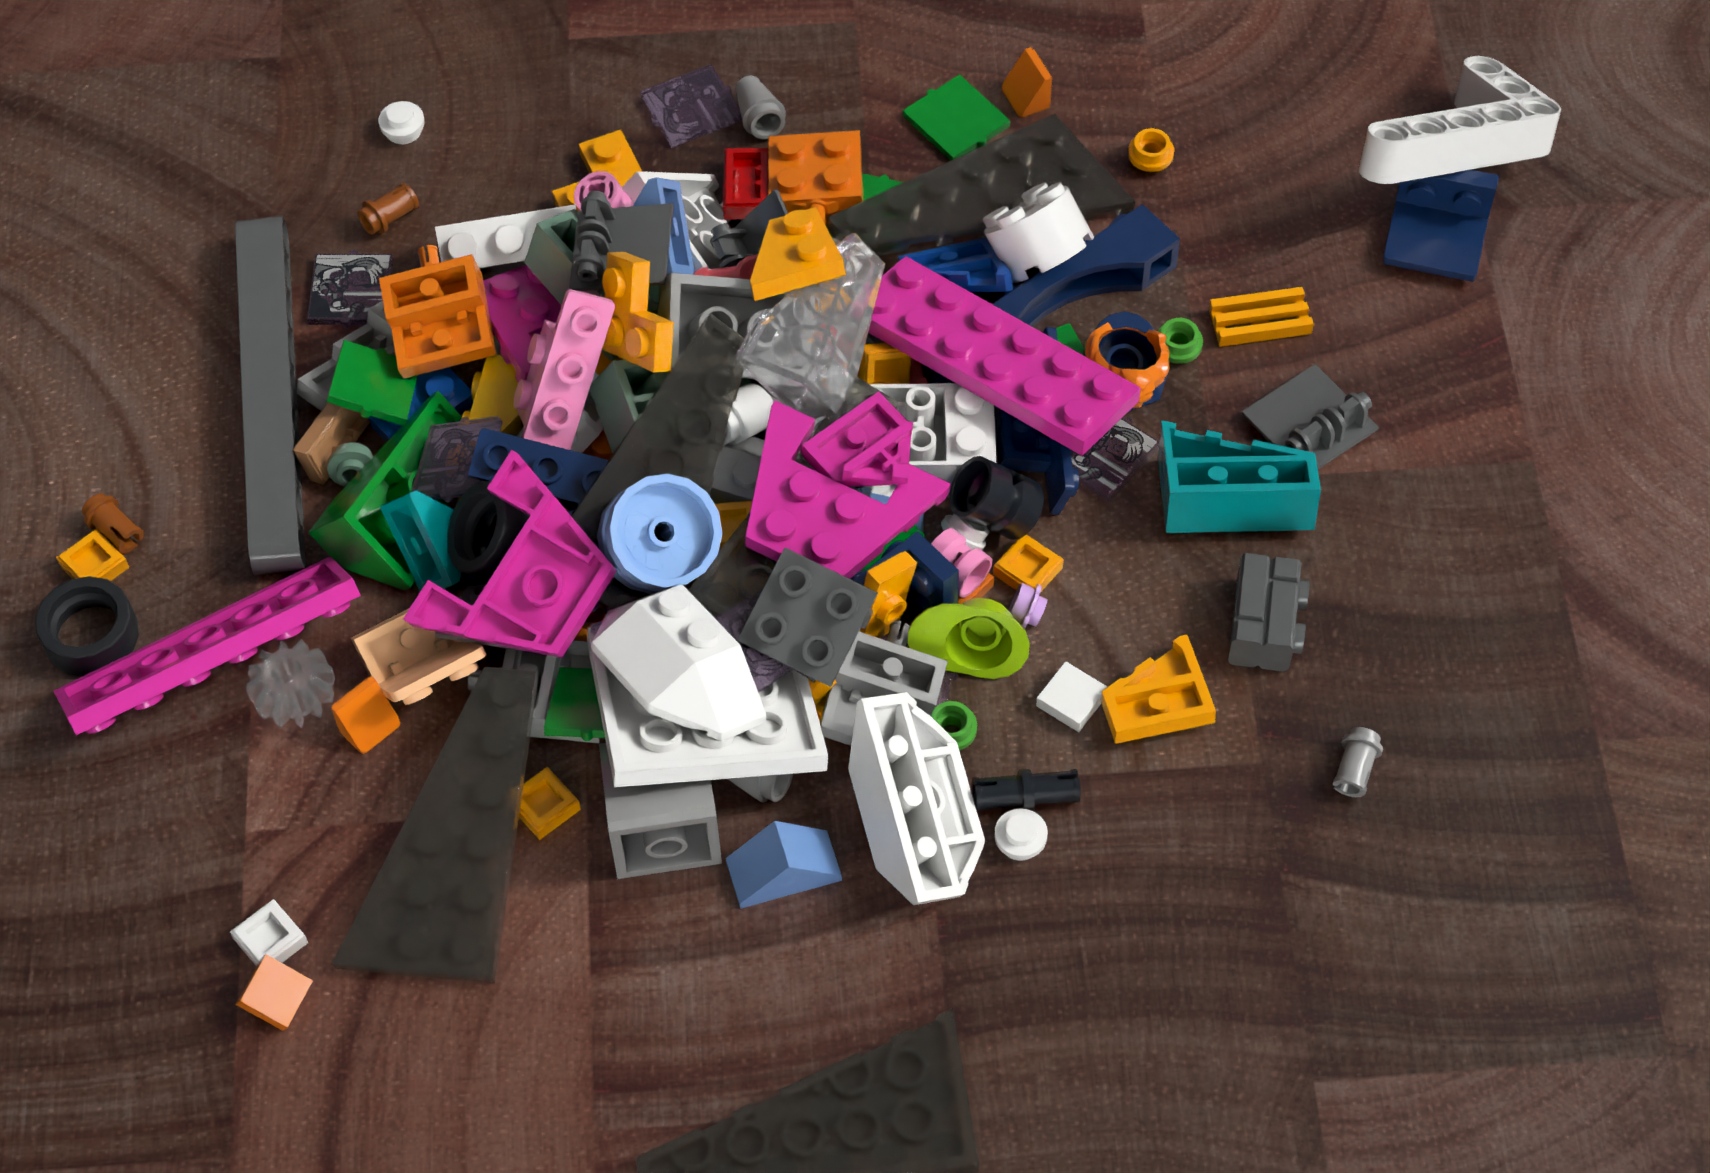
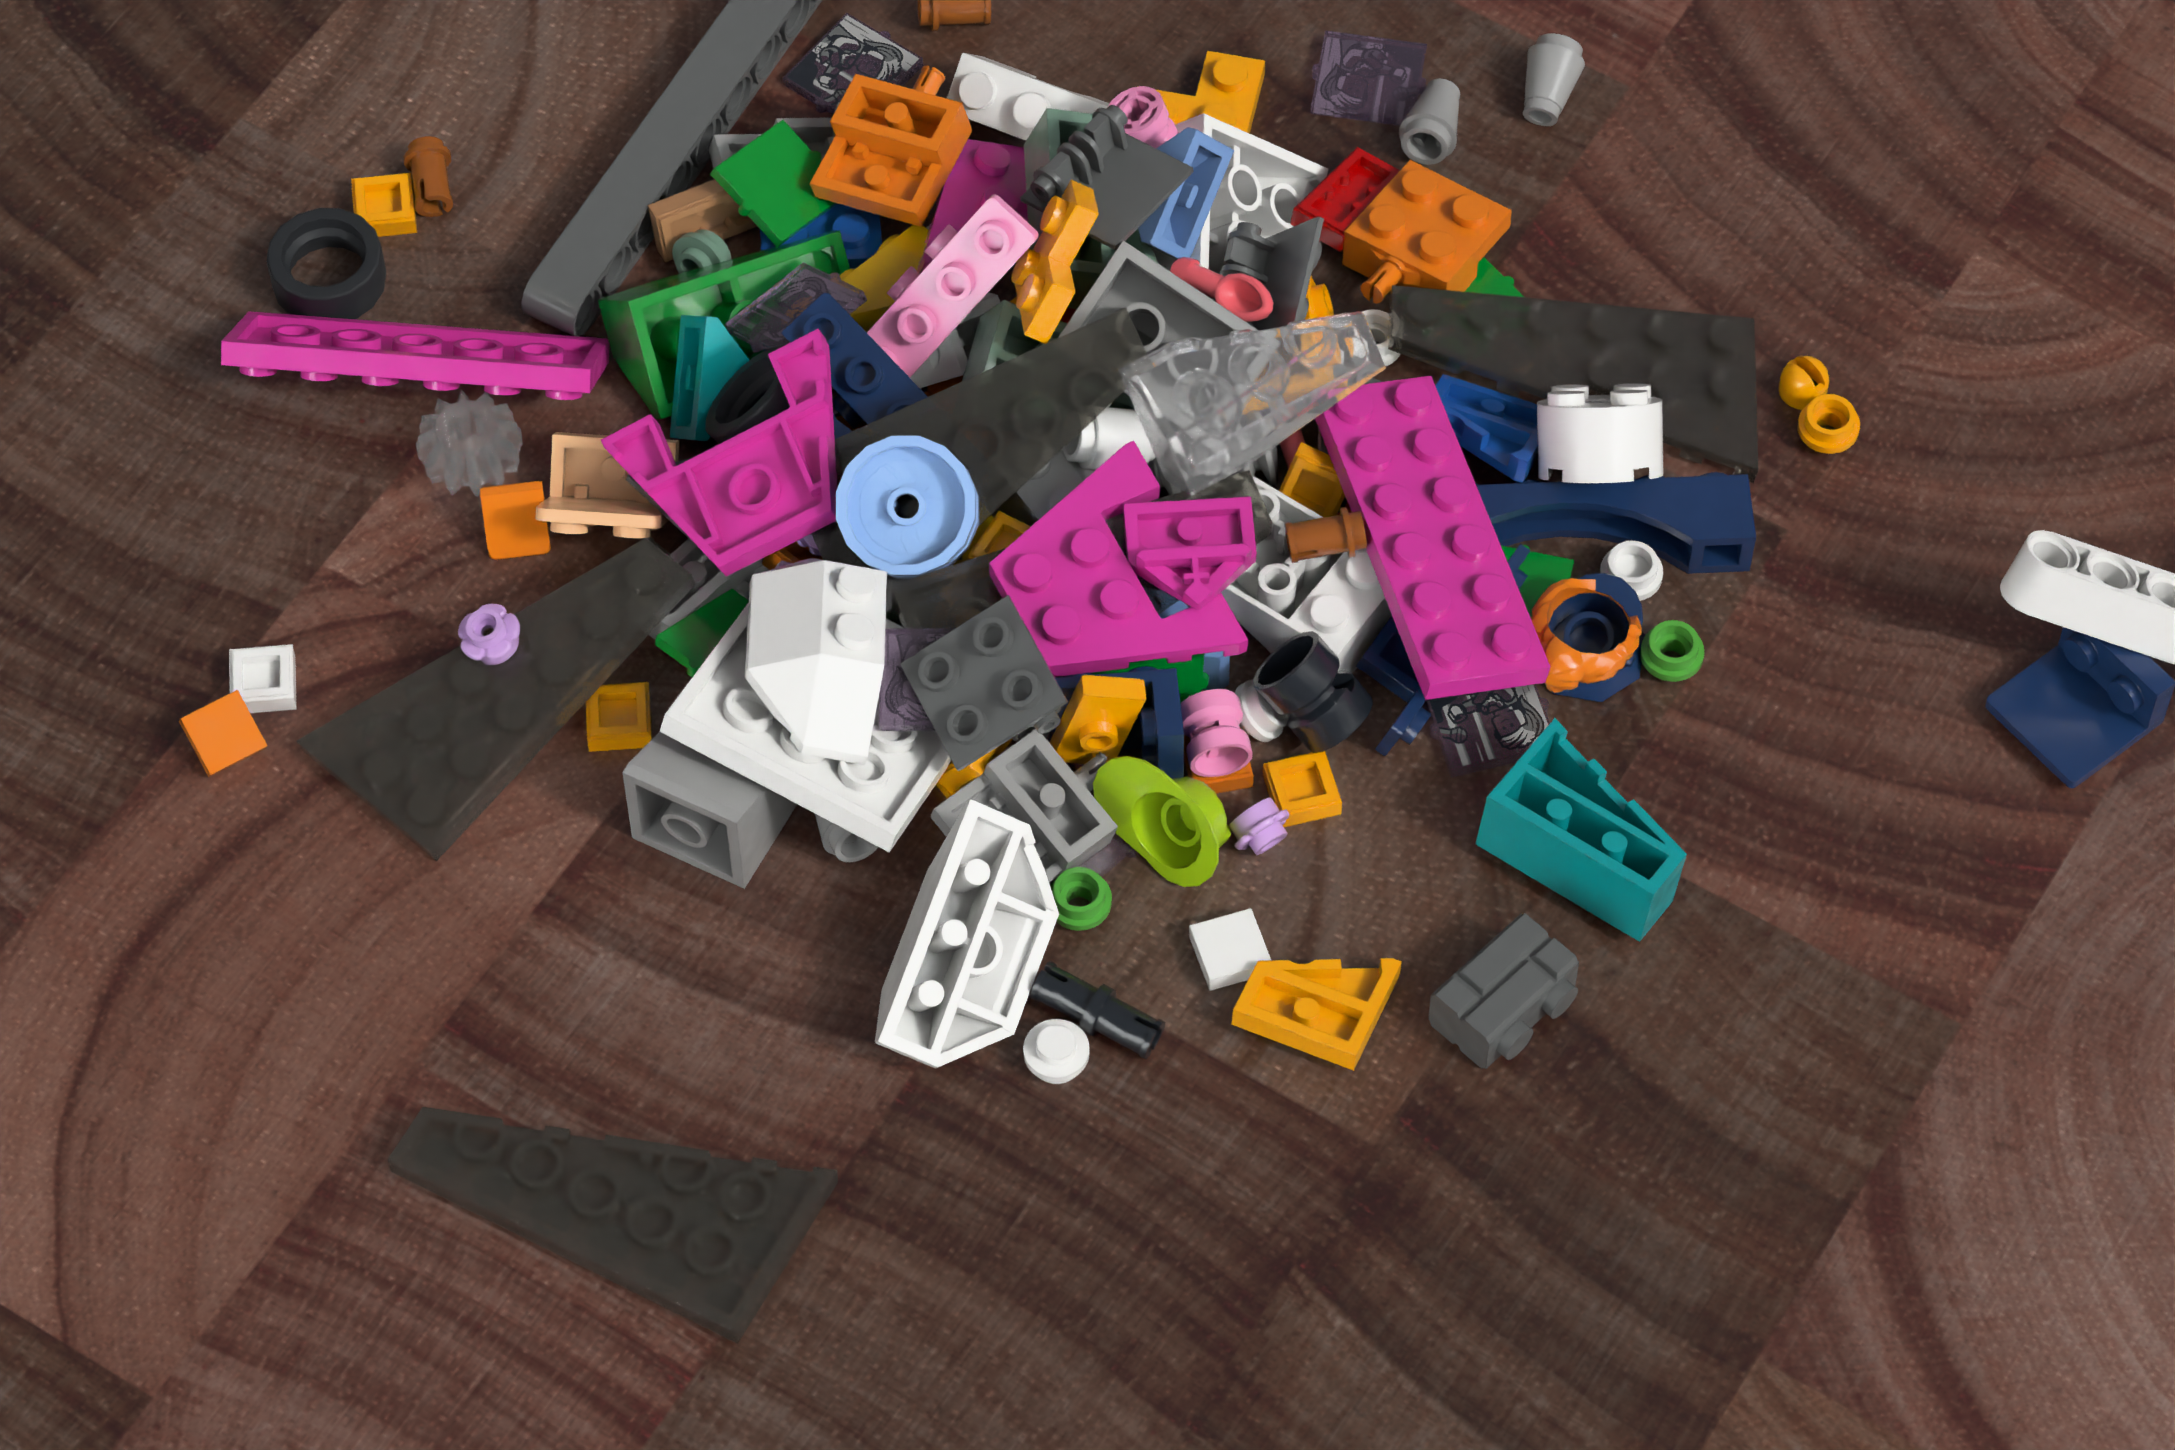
camera: 35 degrees right, 0 degrees up
(427, 812) = (496, 646): none -> lavender plate
(782, 863) = (799, 925): medium blue slope -> none
(795, 255) = (1272, 298): light orange wing -> none
(808, 39) = (1550, 77): none -> light grey cone
(935, 391) = (1326, 536): none -> dark orange pin
(956, 118) = (1647, 260): green piece -> none
(1028, 85) = (1751, 270): orange slope -> none
(1111, 300) = (1636, 565): none -> white plate
(1113, 135) = (1796, 383): none -> light orange hinge
(1258, 310) = (1795, 672): light orange tile -> none
(1313, 416) = (1743, 825): dark grey hinge -> none
(1360, 751) = (1467, 1205): light grey pin -> none

